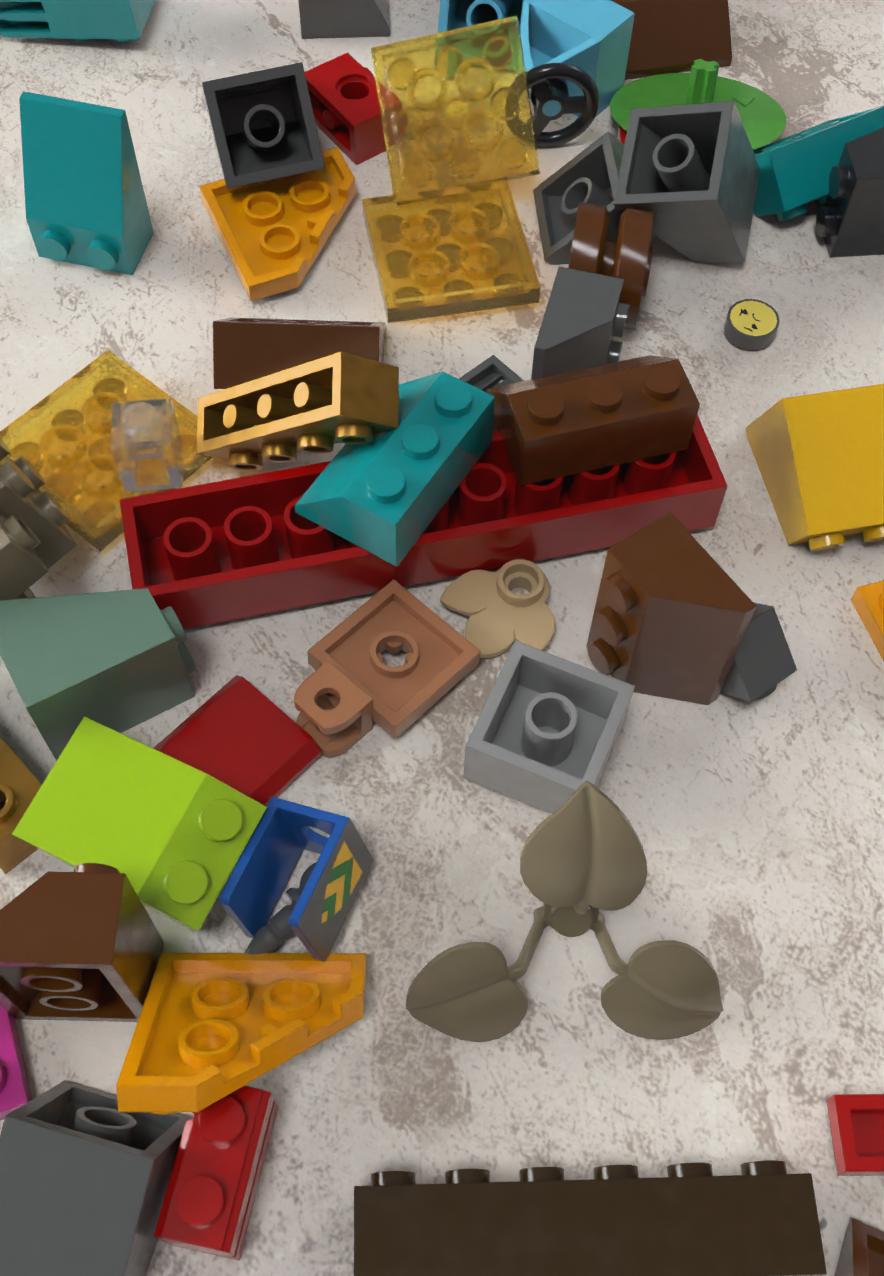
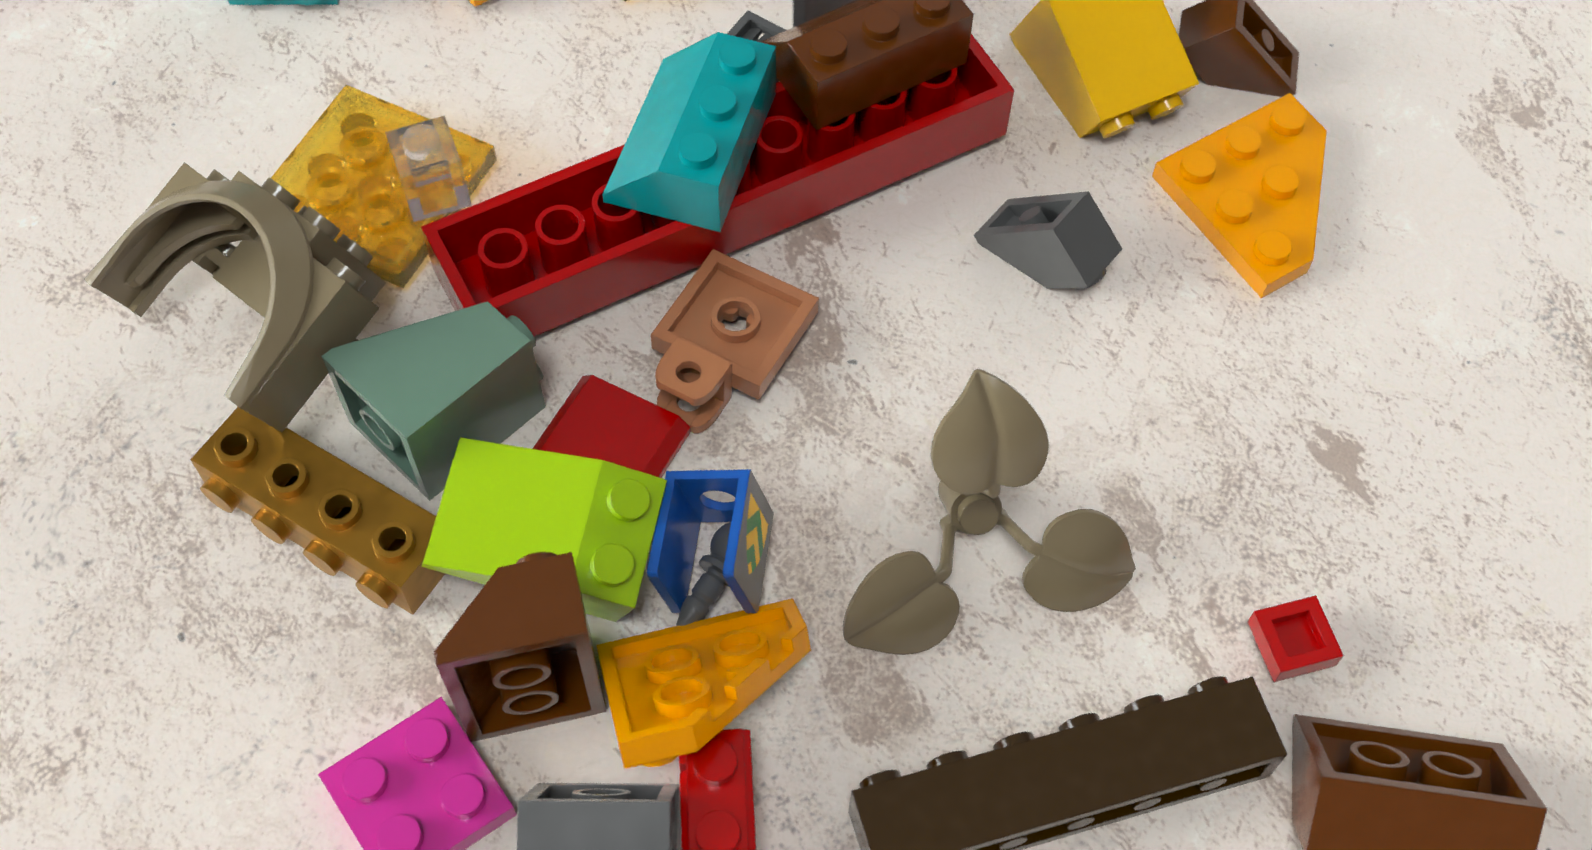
camera: 15 degrees left, 0 degrees up
(263, 346) = (550, 53): reddish brown slope -> none
(299, 411) = (579, 102): pearl gold brick -> none
(500, 615) = (826, 262): tan plate -> none
(545, 728) = (905, 354): light grey brick -> none
(667, 615) = (993, 222): reddish brown slope -> none

